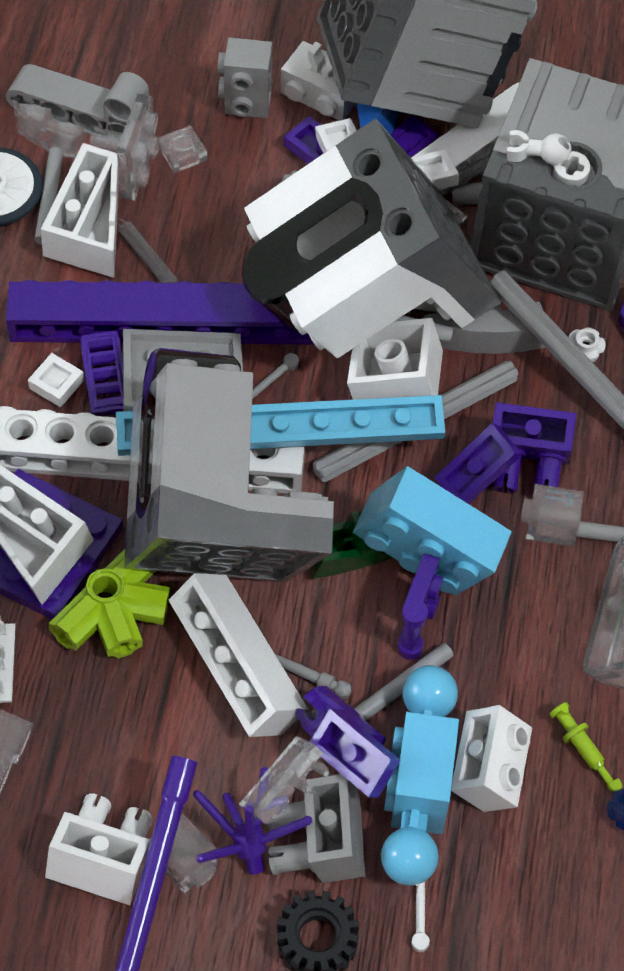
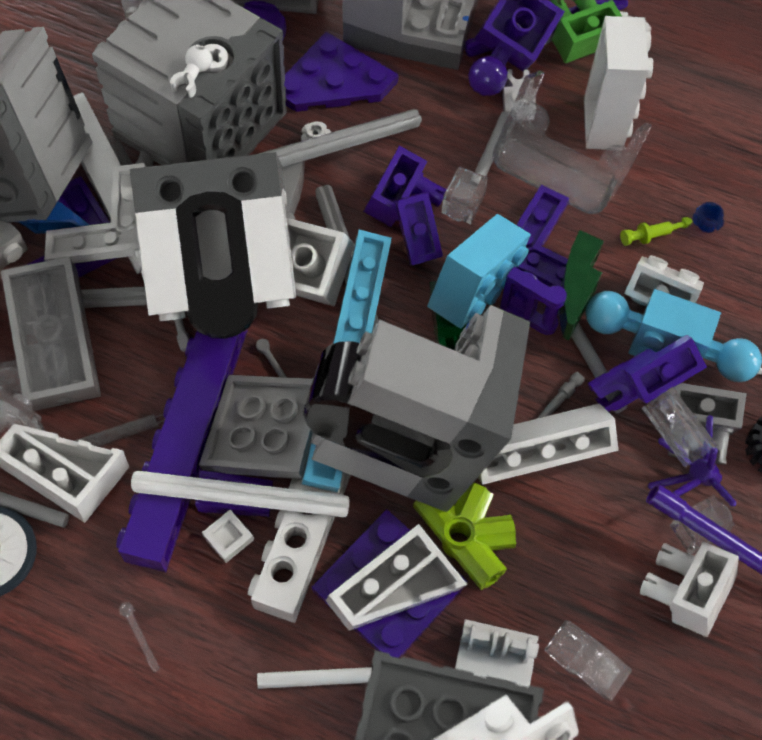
camera: 75 degrees left, 5 degrees up
(92, 369) = (240, 493): none -> white axle
(233, 159) = (50, 333): none -> clear brick
(459, 649) = (579, 280): none -> dark green slope
(520, 599) = (540, 221): none -> dark purple plate

